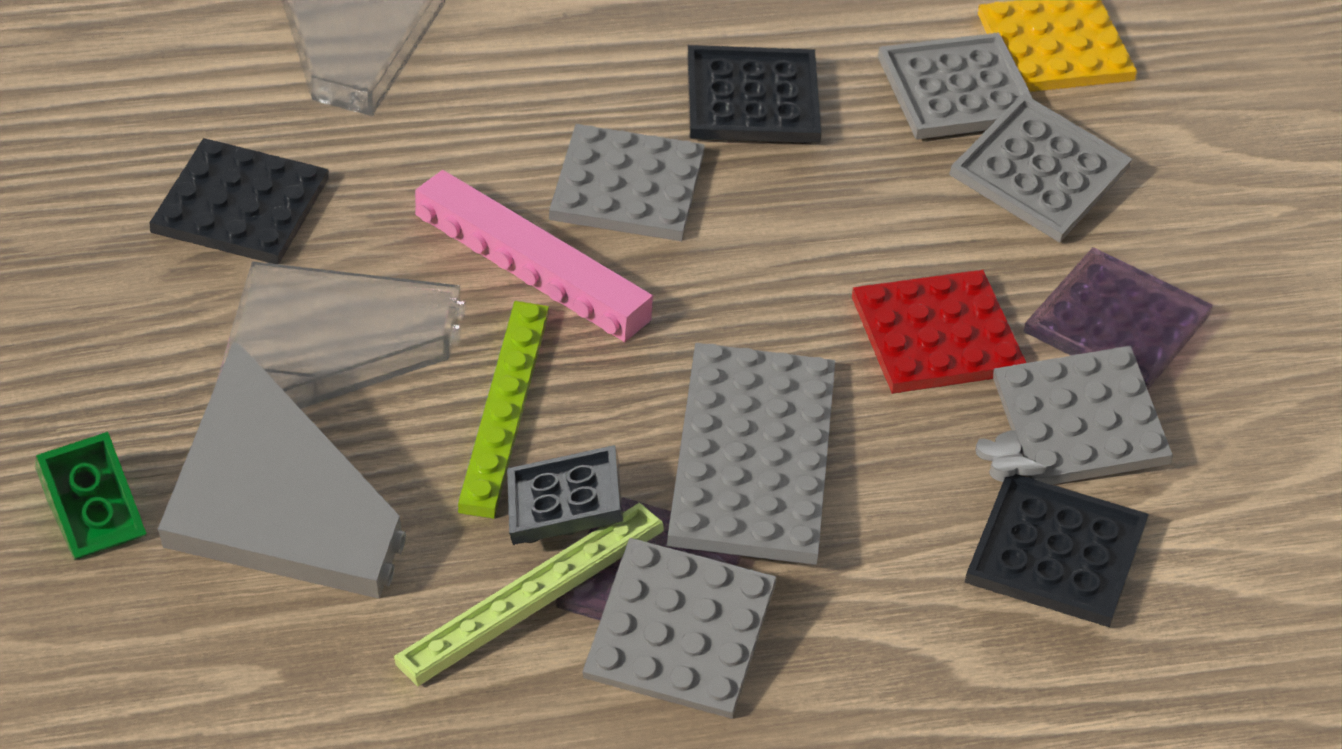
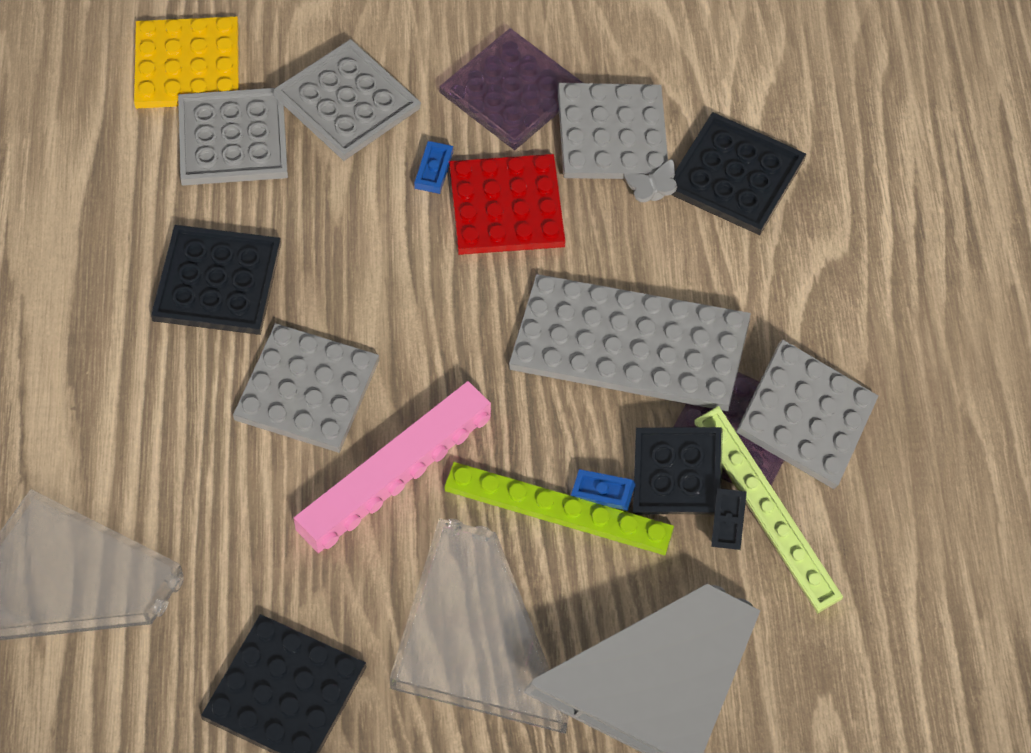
camera: 80 degrees left, 15 degrees up
(502, 547) = (729, 519): none -> black hinge
(531, 435) = (603, 489): none -> blue plate
(969, 255) = (433, 167): none -> blue plate

